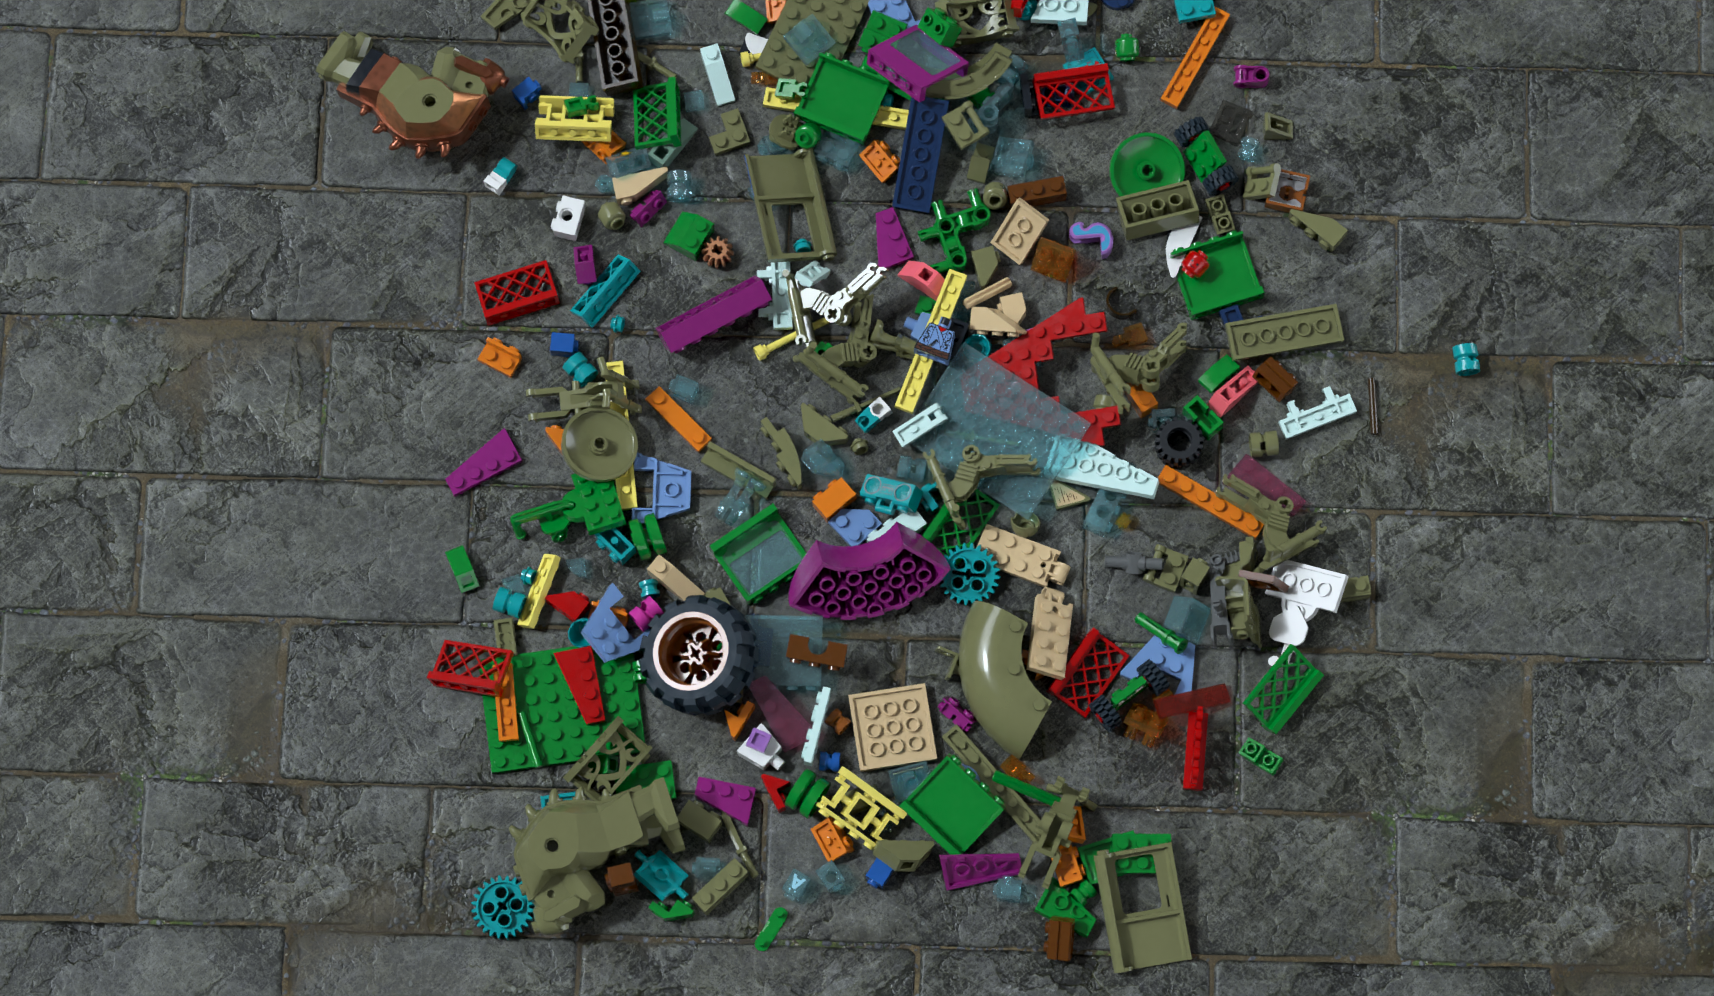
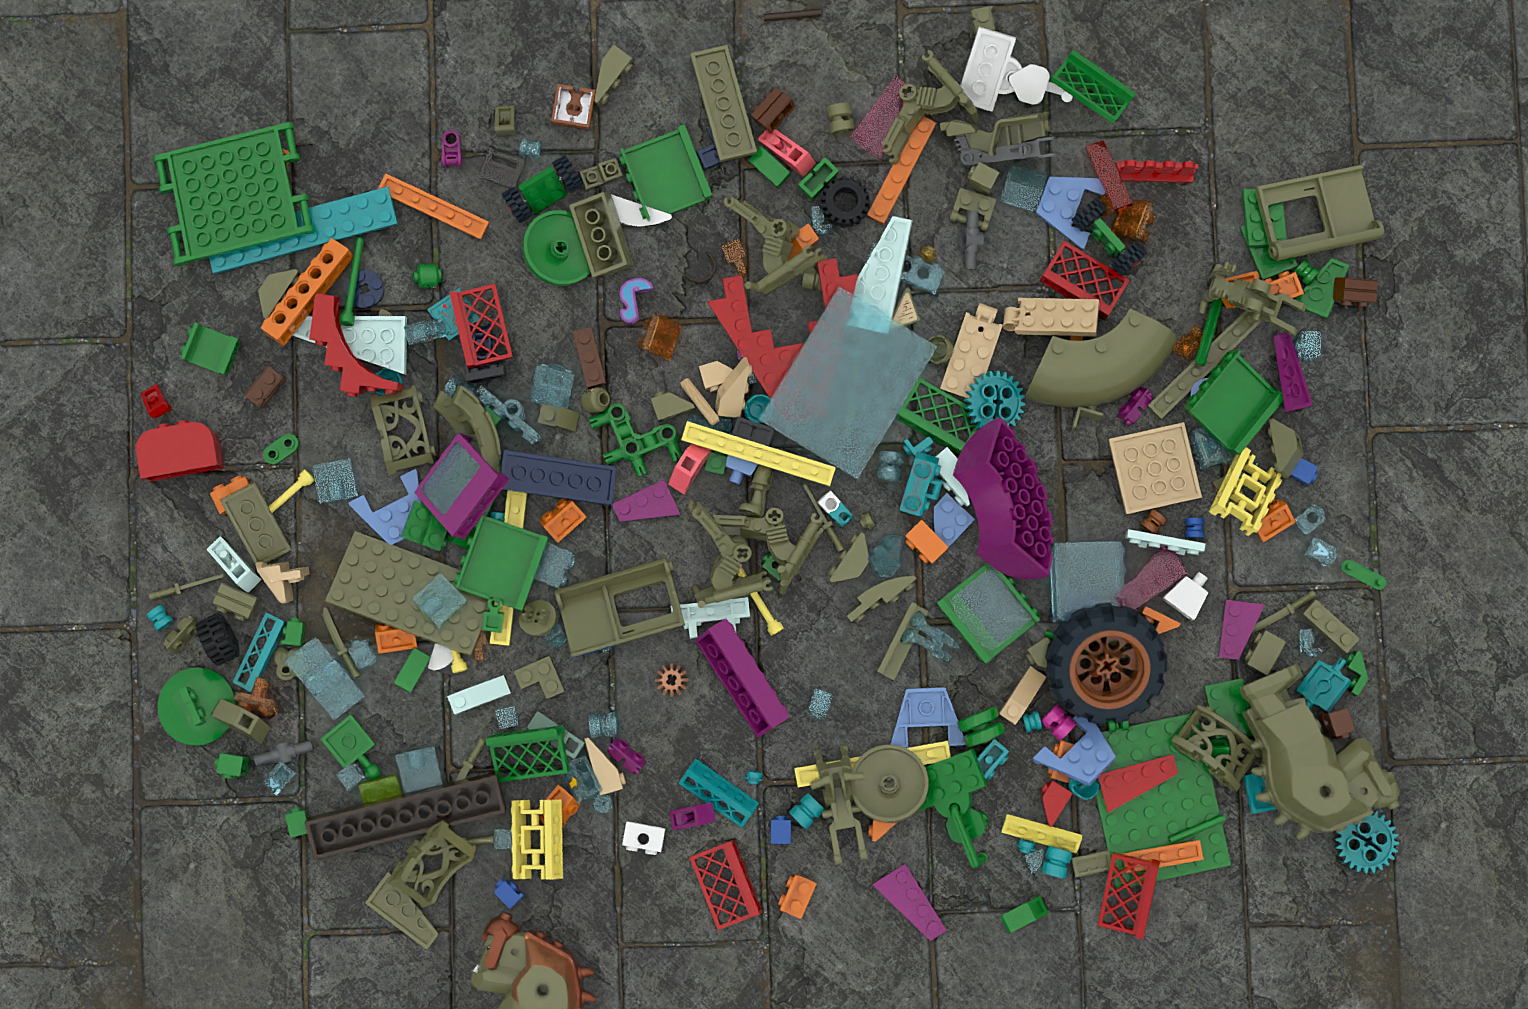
camera: 95 degrees left, 10 degrees up
(500, 176) = (601, 912): leg -> none
(577, 567) = (1012, 797): clear light blue tile -> none
(578, 106) = (526, 835): green plate -> none
(611, 215) = (638, 792): olive head -> none
(678, 419) = (850, 706): orange plate -> none
(689, 234) = (653, 711): green slope -> none
(758, 740) = (1184, 598): medium lavender plate -> none
(774, 786) = (1223, 581): red slope -> none
(799, 651) = (1096, 529): reddish brown arch -> none
(802, 245) = (660, 593): teal plate -> none
(807, 793) = (1232, 545): green wheel -> none
(808, 135) = (543, 595): green head -> none
(812, 274) = (693, 579): light aqua plate -> none
(919, 425) = (846, 460): light aqua plate -> none
(936, 342) = (762, 445): torso -> none
(940, 27) = (419, 466): green brick -> none
(960, 128) = (532, 436): olive plate -> none
(969, 474) = (900, 404): olive piece -> none
(1019, 231) = (634, 371): tan plate -> none
(1167, 637) = (1047, 202): green pin -> none
(1195, 264) = (658, 194): red head -> none
(1260, 756) = (1155, 108): green slope -> none
(1261, 187) = (572, 132): olive plate -> none
(1264, 581) = (986, 110): tile -> none
(1329, 411) = (813, 82): light aqua hinge -> none

